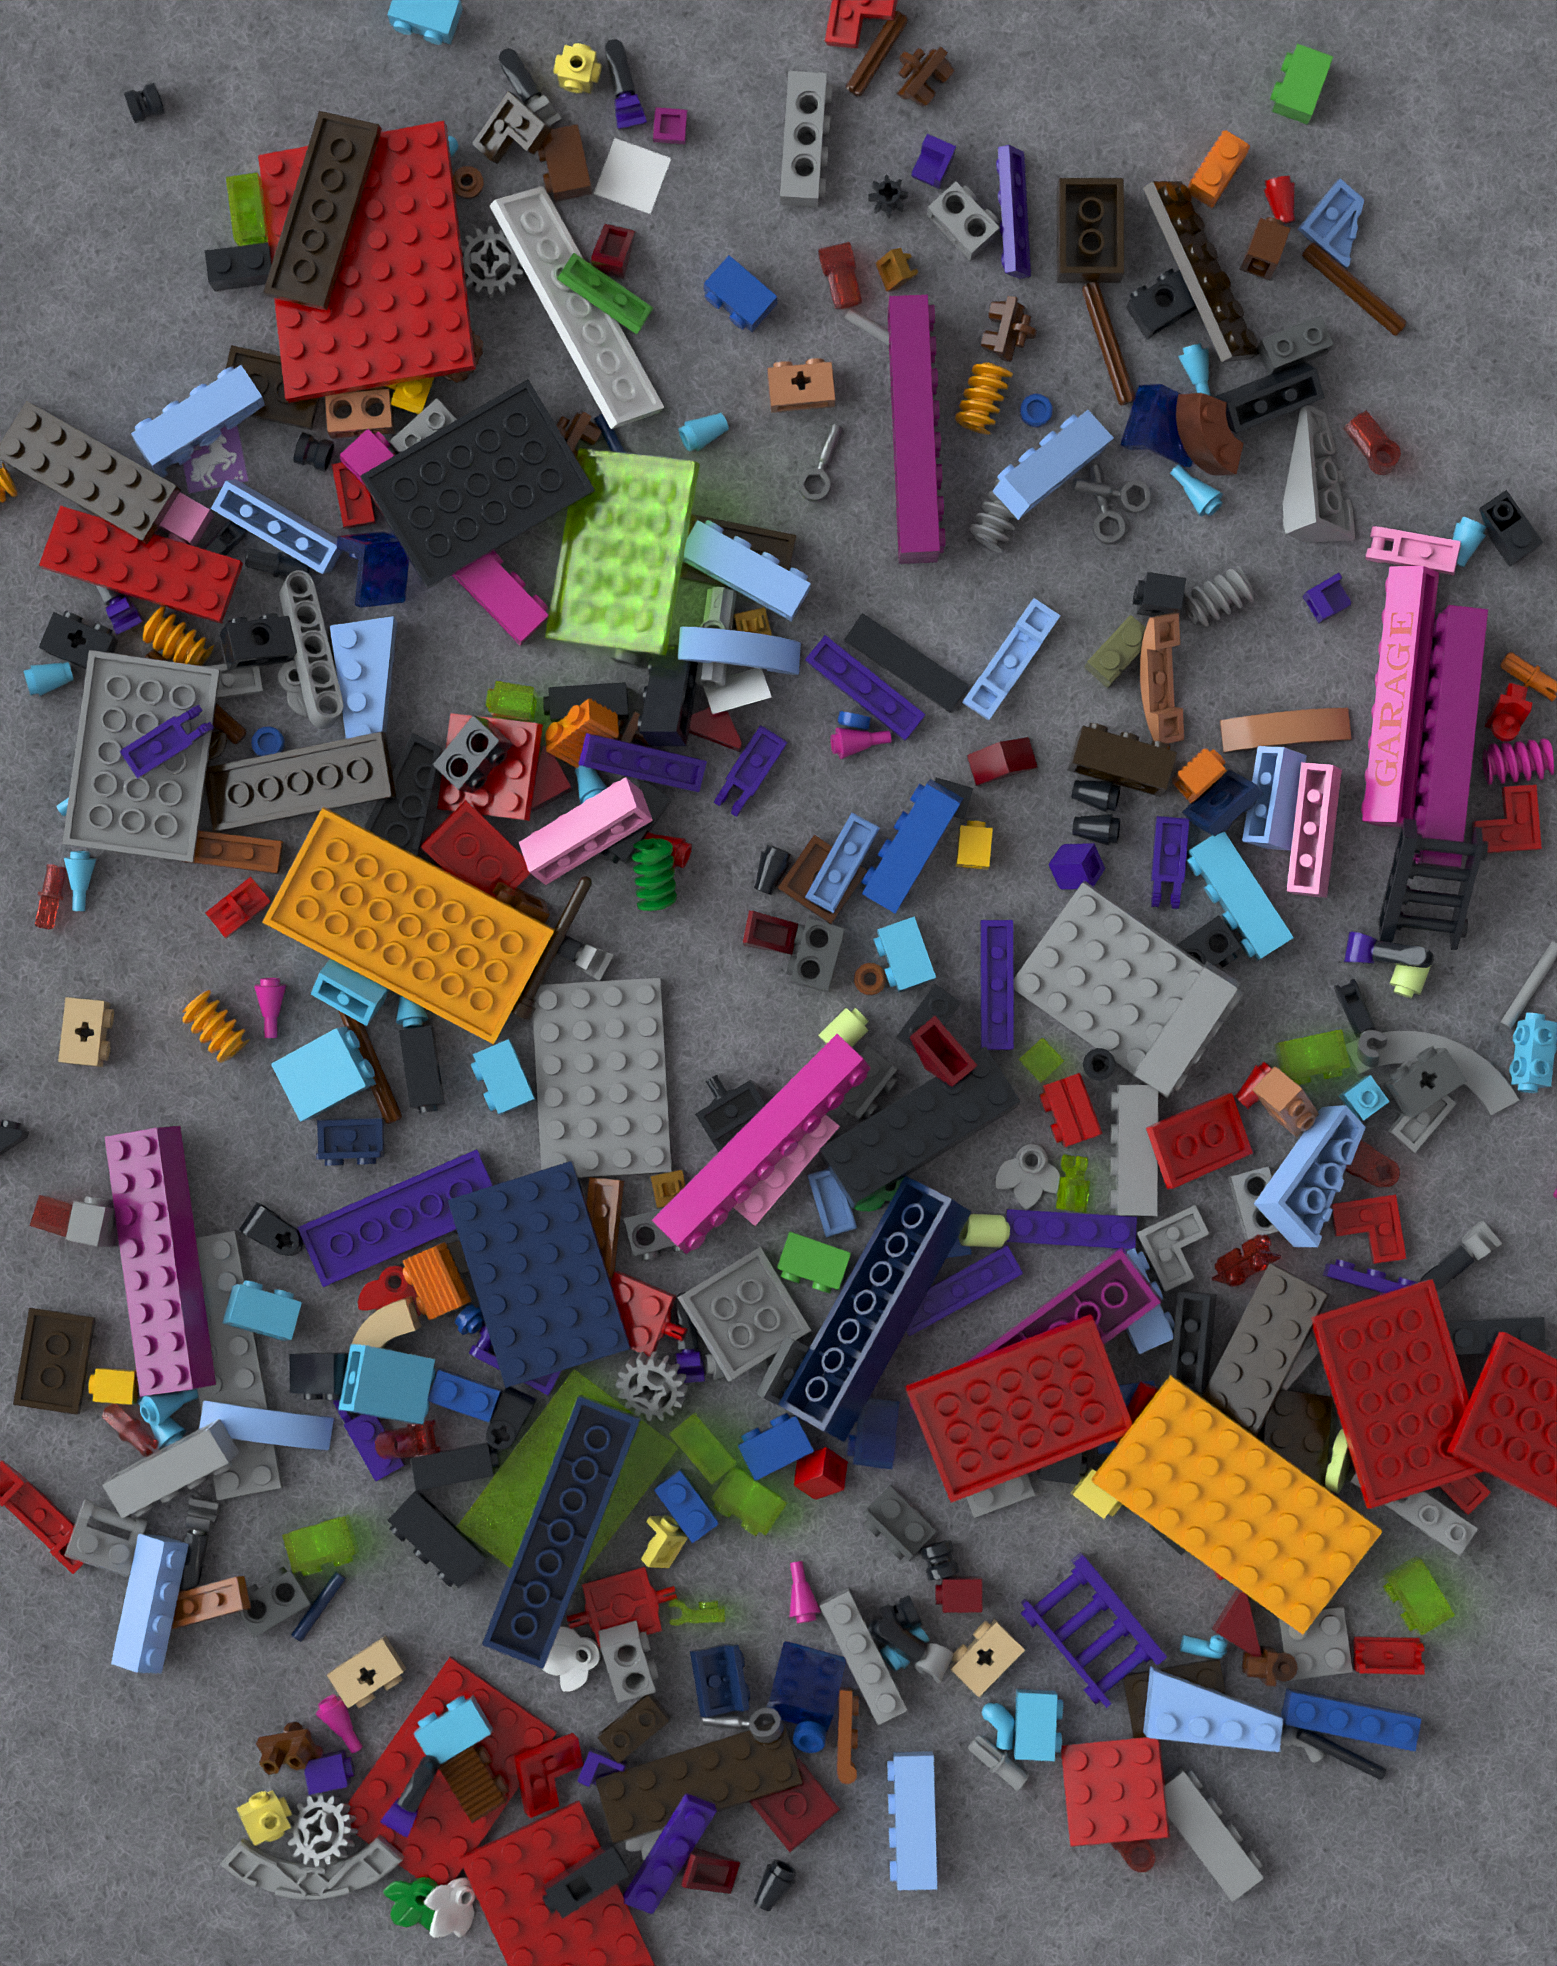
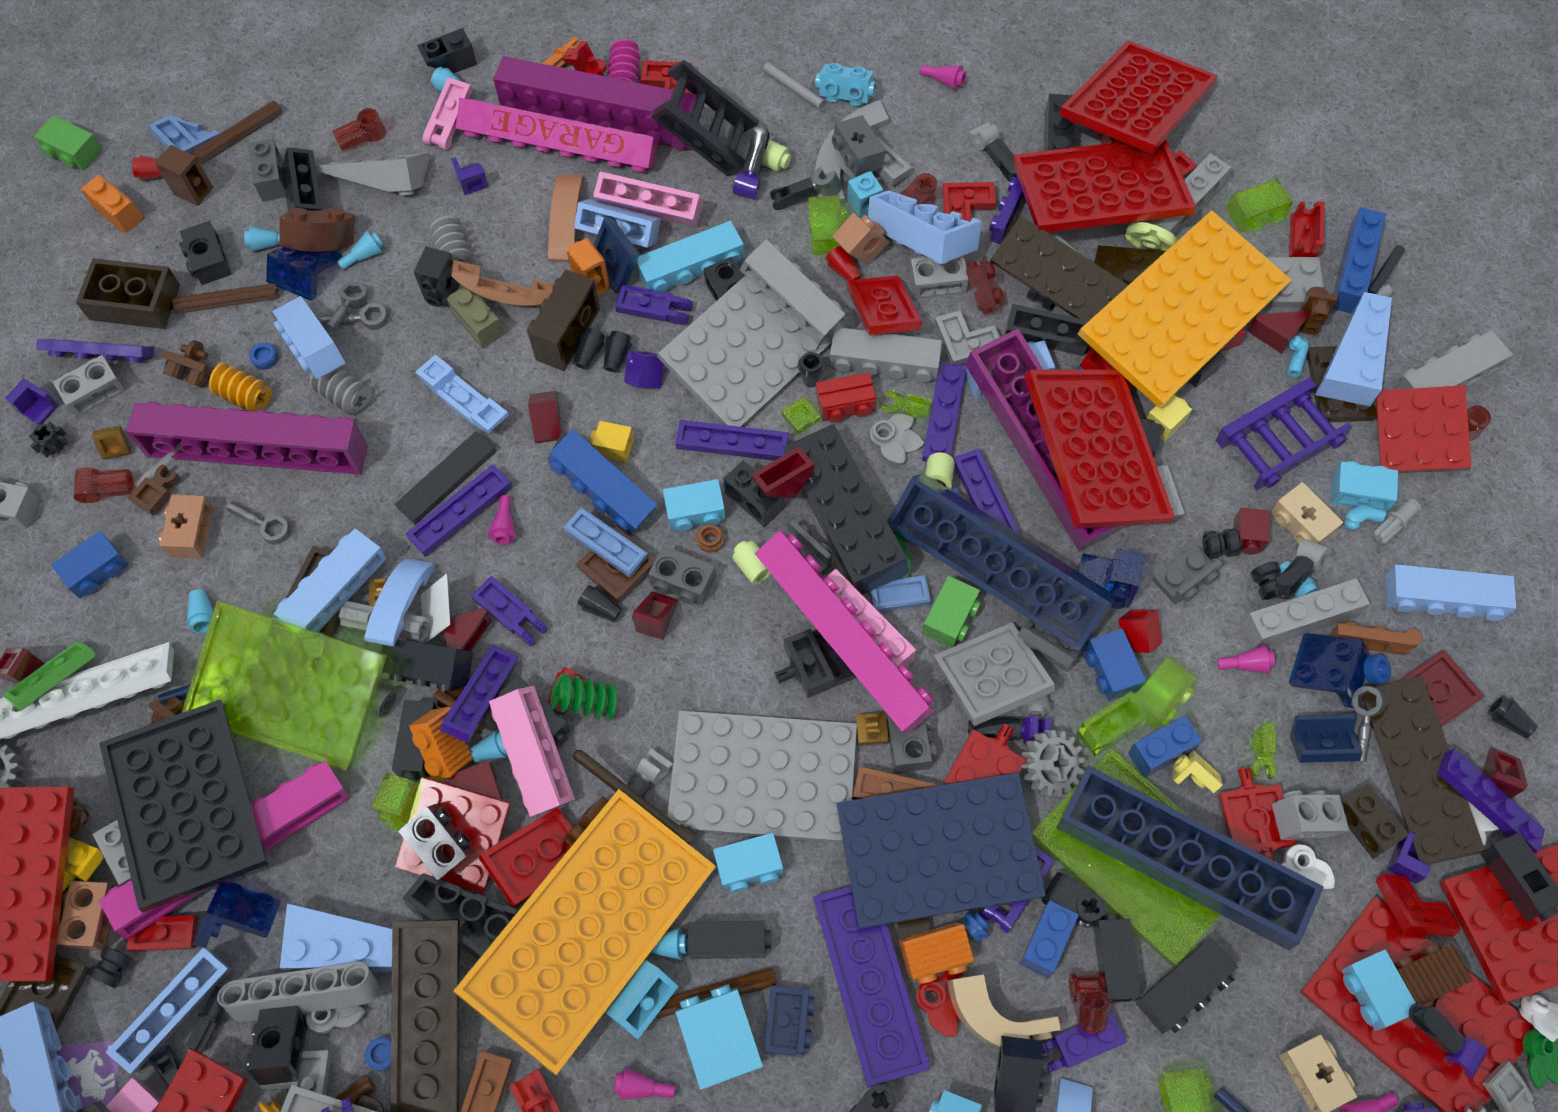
camera: 80 degrees left, 20 degrees down
(387, 1384) = (1035, 1008): medium azure brick -> none
(837, 334) = (153, 493): none -> reddish brown plate
(854, 720) = (484, 520): blue tile -> none
(1201, 270) = (177, 220): dark brown plate -> none

